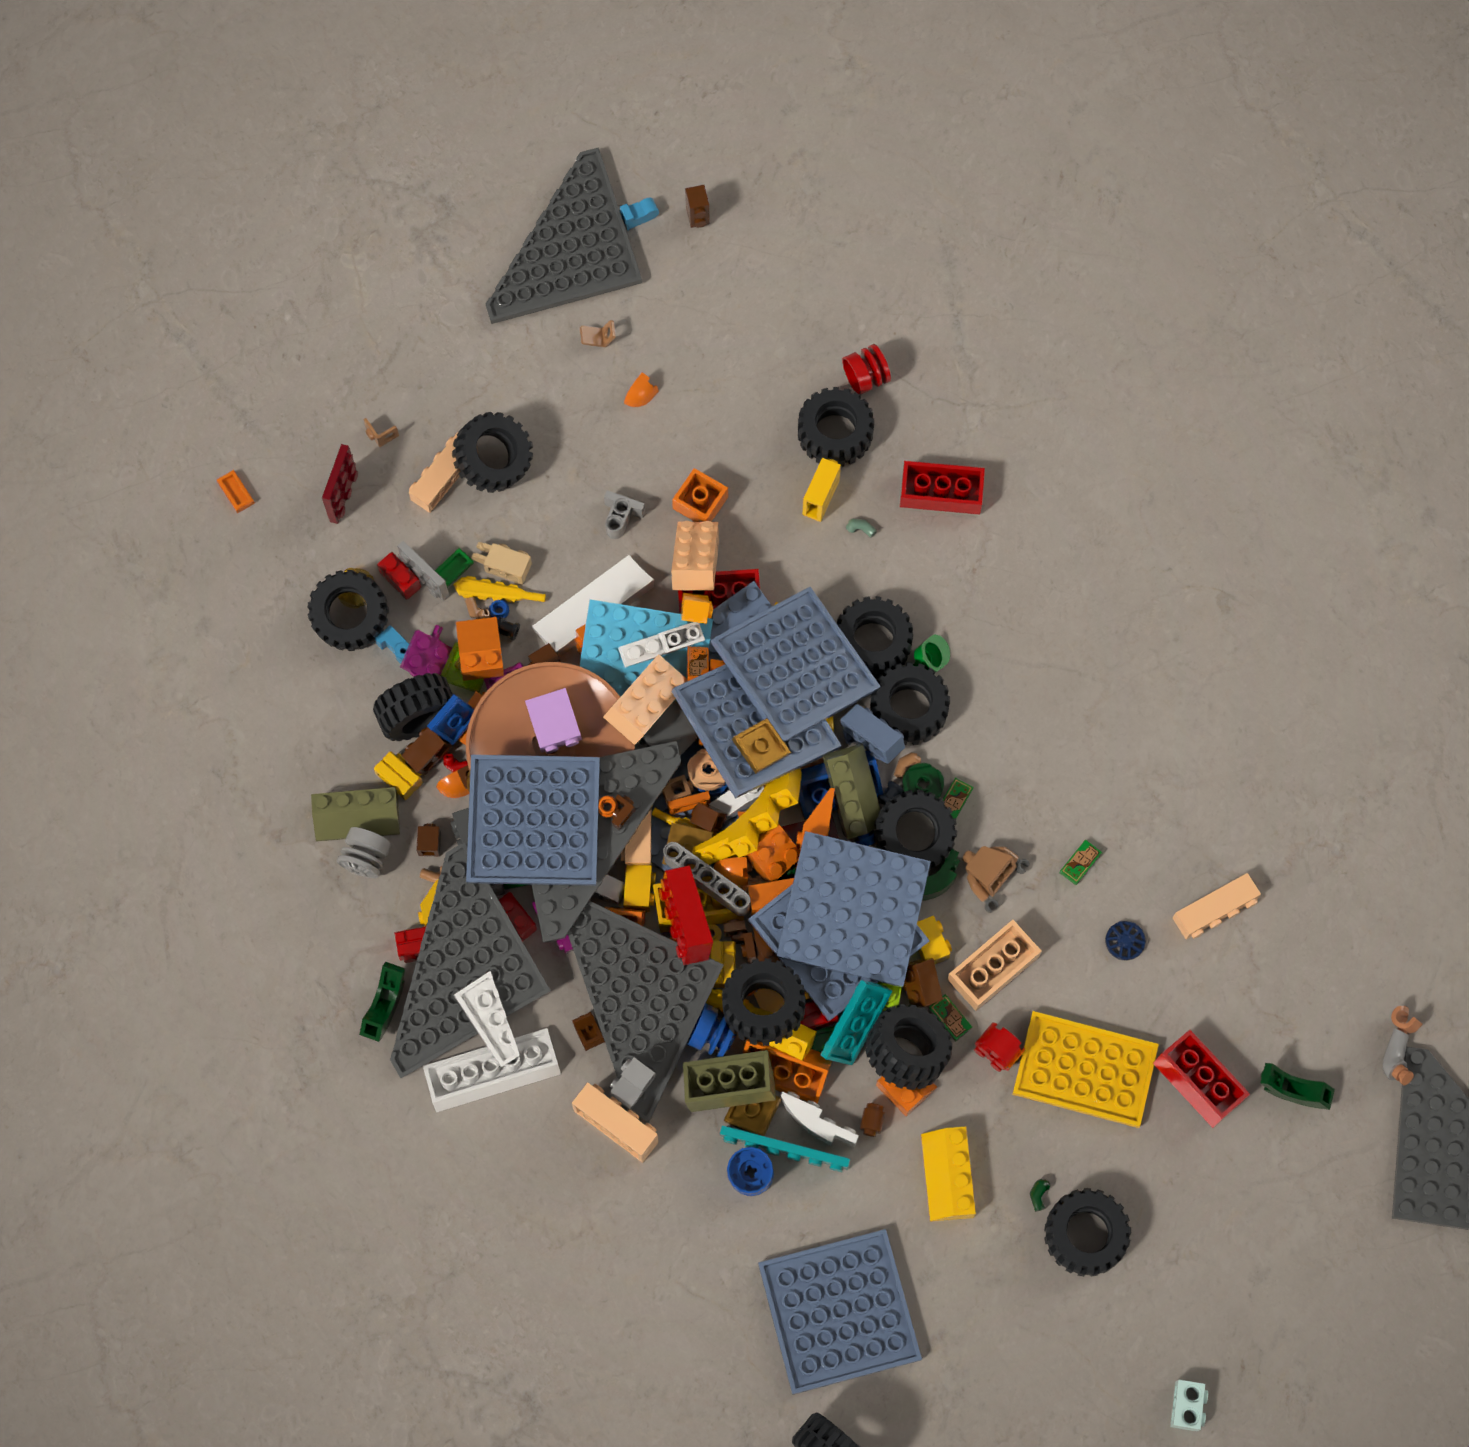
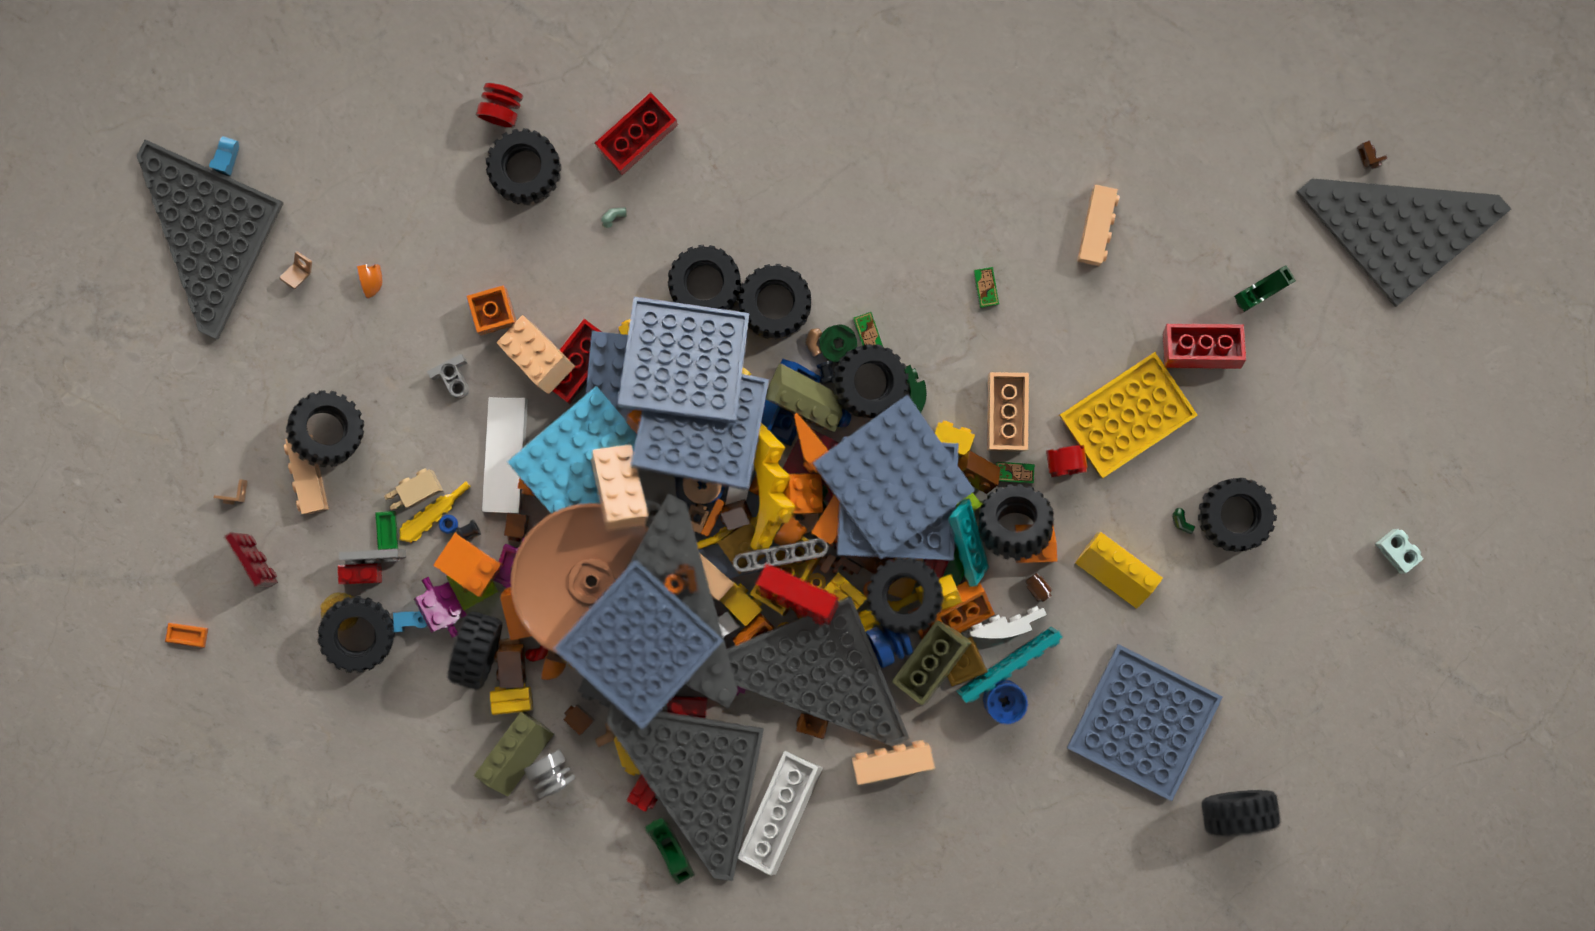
camera: 50 degrees left, 15 degrees up
(452, 719) = (508, 632): blue plate -> none
(474, 611) = (435, 542): medium nougat arm -> none
(485, 1011) = (744, 788): white wing -> none
(553, 721) = (578, 567): lavender brick -> none
(633, 1082) = (878, 729): light grey brick -> none
(661, 644) = (585, 440): white slope -> none
(696, 608) = (580, 392): light orange brick -> none
(697, 206) = (260, 110): reddish brown brick -> none
(697, 662) = (622, 427): tile -> none
(761, 745) = (726, 439): pearl gold plate -> none
(821, 489) = (562, 219): yellow brick -> none
(863, 727) = (777, 349): sand blue wedge -> none
(932, 653) = (752, 253): green piece -> none
(989, 870) = (940, 355): medium nougat torso -> none
(1125, 940) = (1065, 307): dark blue wheel -> none
(1393, 1060) = (1299, 206): piece -> none

